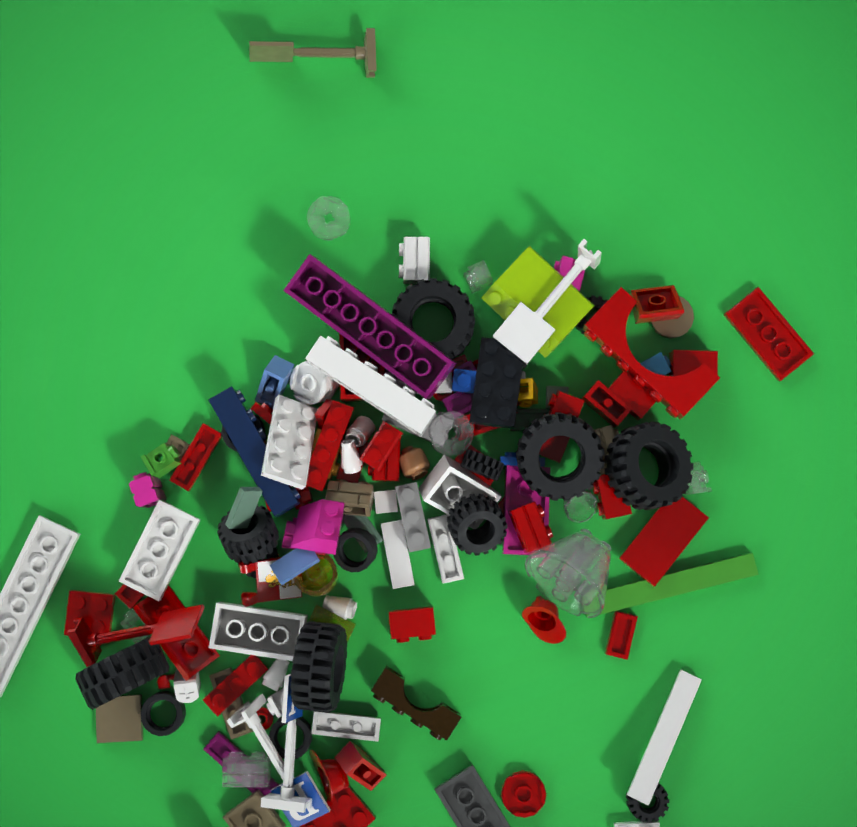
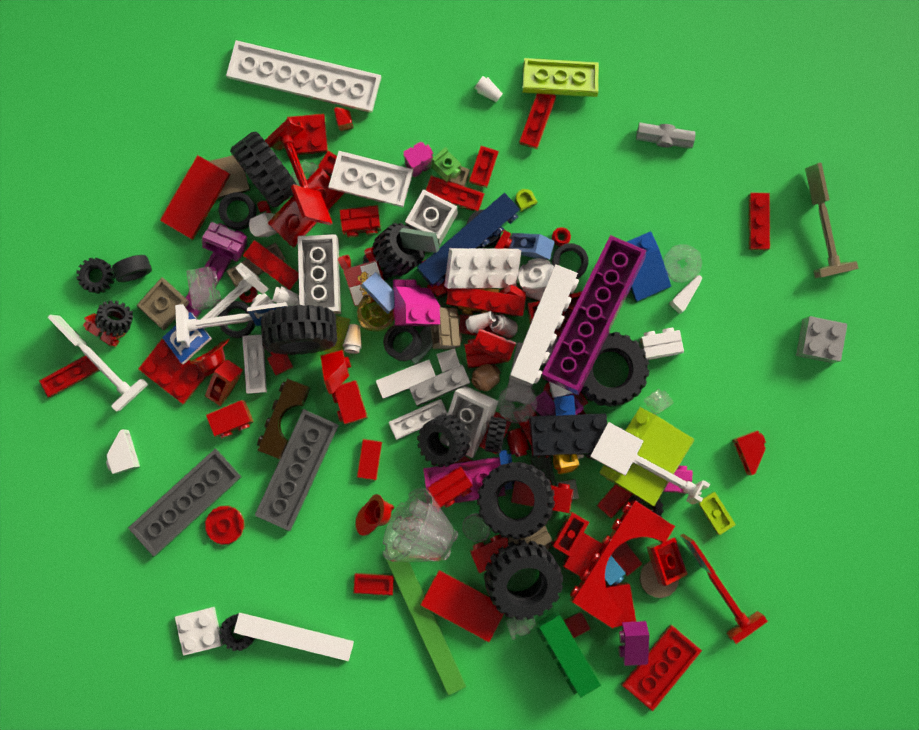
camera: 80 degrees right, 0 degrees up
(80, 568) = (343, 119): none -> red slope
(82, 395) = (487, 89): none -> white cone
(86, 309) = (560, 77): none -> lime tile
(130, 345) = (537, 120): none -> red plate
(136, 760) = (195, 197): none -> red tile
(171, 417) = (483, 166): none -> red plate
(179, 206) = (665, 135): none -> light grey piece
(196, 735) = (224, 241): none -> magenta brick
(205, 571) = (360, 221): none -> red brick
(216, 488) = (432, 215): none -> white brick
(219, 378) = (525, 199): none -> lime tile
(267, 340) = (563, 231): none -> red plate
(289, 330) = (577, 249): none -> black tyre
(298, 124) = (759, 221): none -> red plate
(334, 252) = (652, 274): none -> blue slope
(351, 696) = (279, 363): none -> red plate
(369, 226) = (681, 301): none -> white slope
(371, 633) = (335, 369): none -> red slope
(403, 766) = (229, 419): none -> red brick
(445, 85) = (821, 339): none -> light grey brick
(477, 699) = (296, 470): none -> dark grey plate
(480, 613) = (369, 459): none -> red tile
(494, 442) = (517, 442): none -> red brick
(551, 187) = (750, 450): none -> red slope
(578, 348) = (614, 500): none -> red tile
(613, 239) = (716, 513): none -> lime plate
(645, 347) = (626, 558): none -> red tile
(706, 416) = (577, 624): none -> red tile
(738, 358) = (634, 643): none -> magenta brick
(739, 234) = (745, 625): none -> red piece
(741, 431) = (565, 649): none -> green brick

